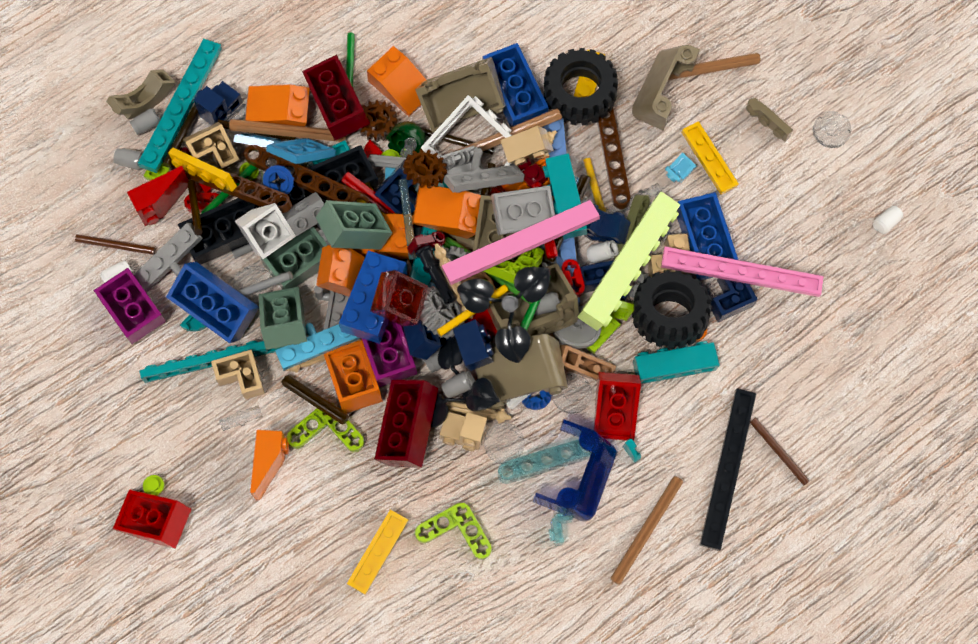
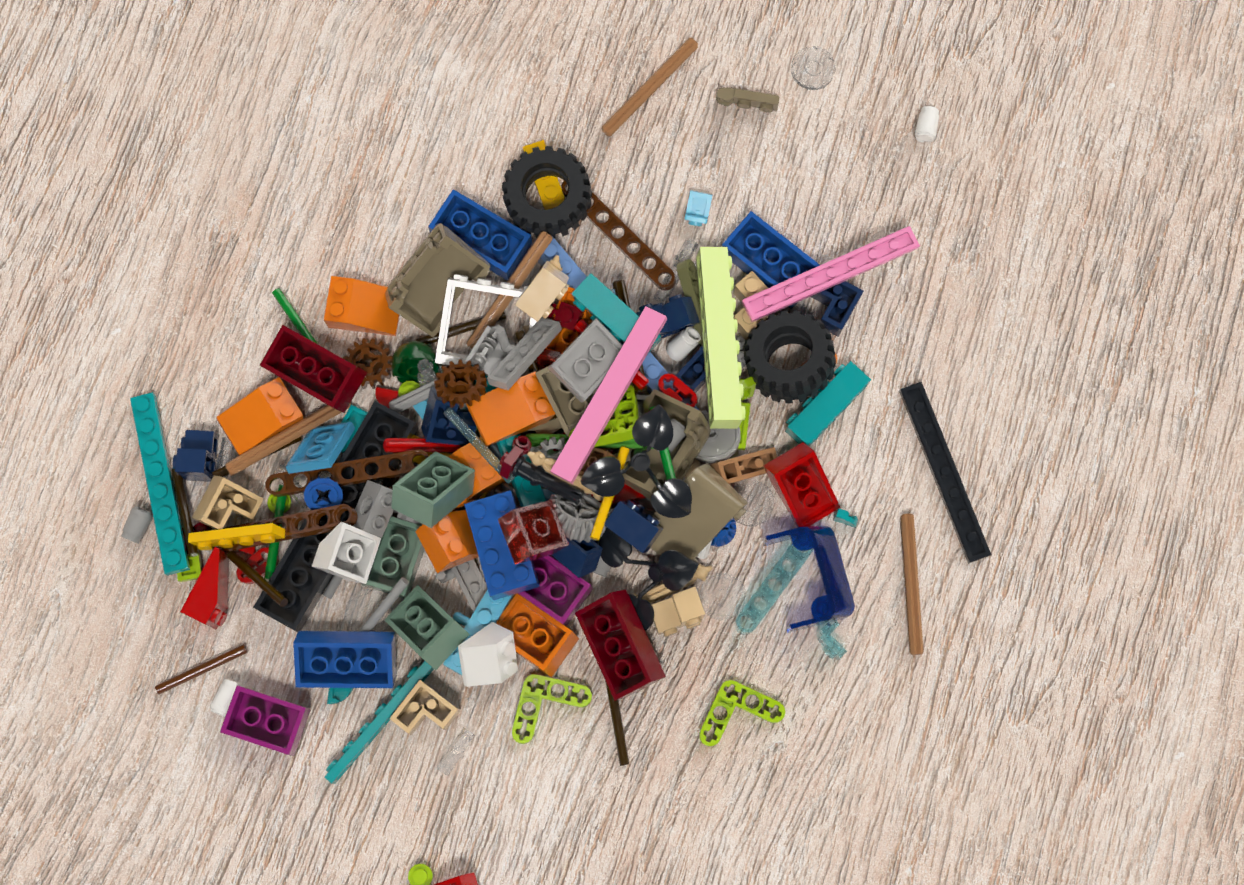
camera: 30 degrees left, 5 degrees up
(127, 158) = (148, 573): light grey piece -> none
(146, 96) = (117, 500): dark tan arch -> none
(167, 257) = (268, 647): light grey plate -> none
(252, 139) = (267, 466): tile -> none
(268, 458) = (512, 769): orange slope -> none
(309, 366) = (488, 656): none -> white slope
(315, 399) = (523, 683): dark brown axle -> none
(362, 485) = (618, 729): none -> dark brown bar
(377, 552) = (680, 785): yellow plate -> none
(458, 384) = (643, 572): light grey piece -> none
(593, 184) = (630, 284): yellow bar -> none
(650, 104) = (622, 161): dark tan windscreen -> none
(709, 158) = (718, 177): yellow plate -> none
(779, 451) = (980, 422): reddish brown bar -> none

